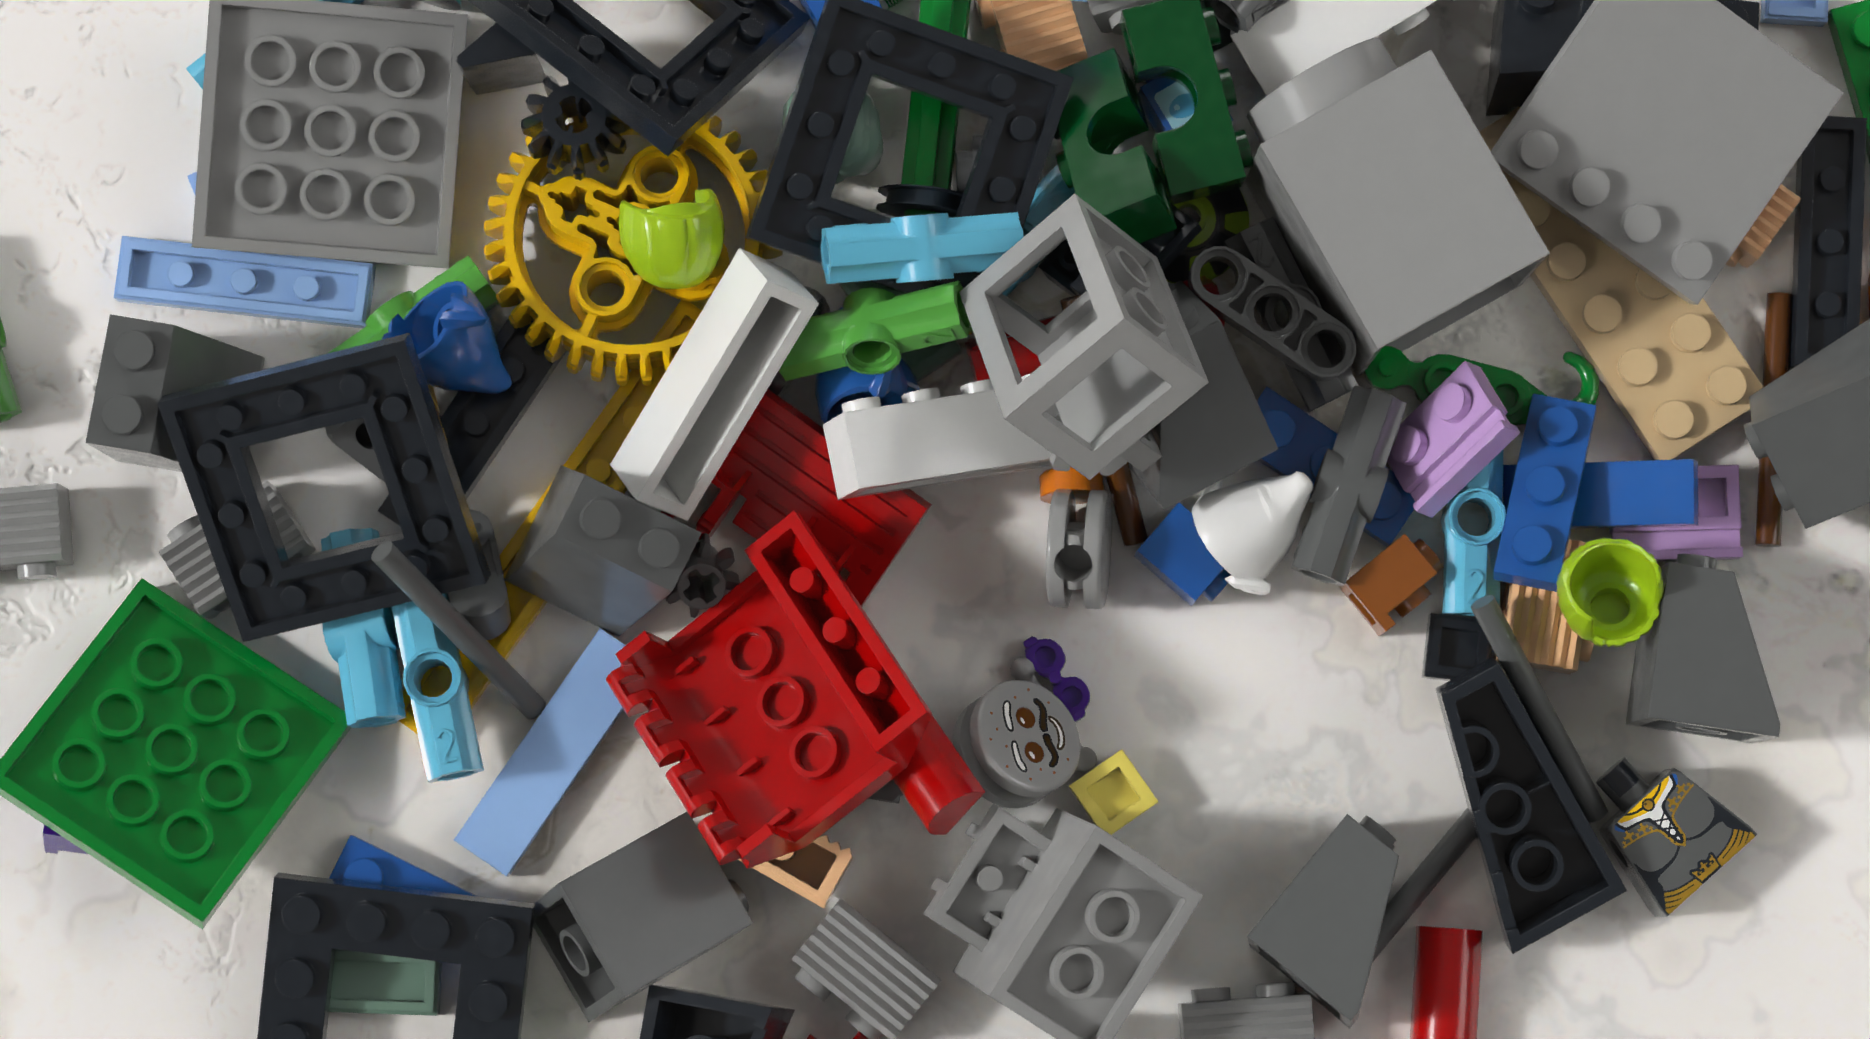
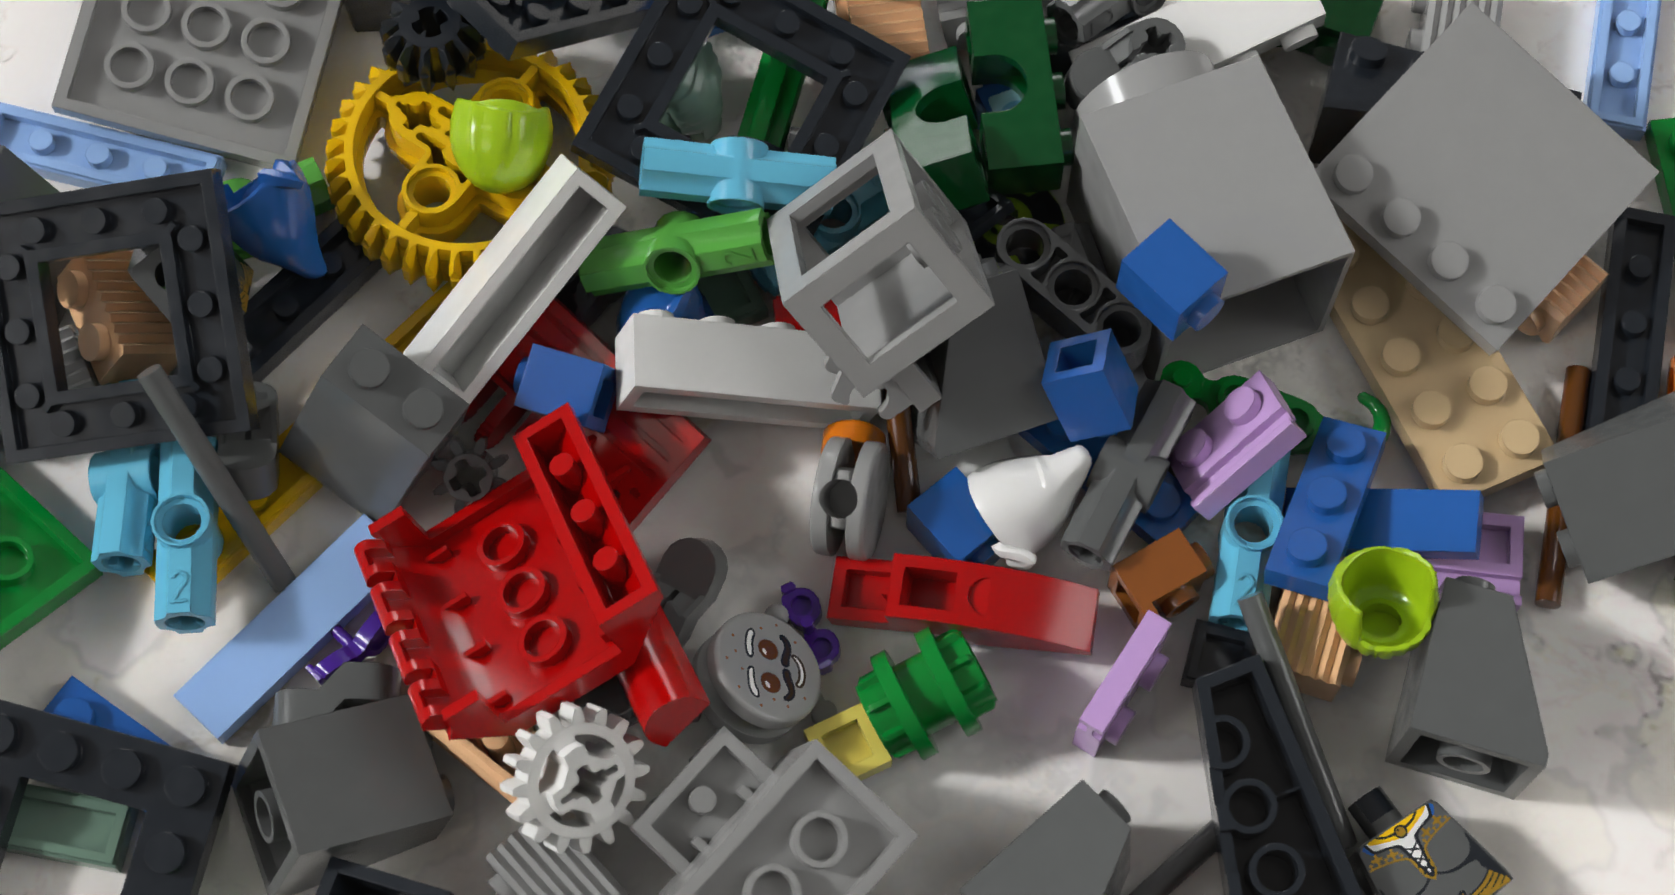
camera: 10 degrees right, 15 degrees down
(317, 480) = (115, 318): none -> light nougat brick
(621, 767) = (368, 642): none -> dark purple piece
(626, 809) = (347, 687): none -> dark grey piece
(781, 479) = (556, 377): none -> blue brick
(868, 880) = (575, 777): none -> white gear
(937, 639) = (690, 582): none -> dark grey piece
(1182, 733) = (925, 693): none -> green piece
(1204, 636) = (981, 600): none -> red slope
(1303, 414) = (1090, 385): none -> blue brick
(1312, 34) = (1127, 47): none -> dark grey piece
(1377, 323) = (1172, 281): none -> blue brick
(1380, 675) = (1136, 666): none -> lavender plate

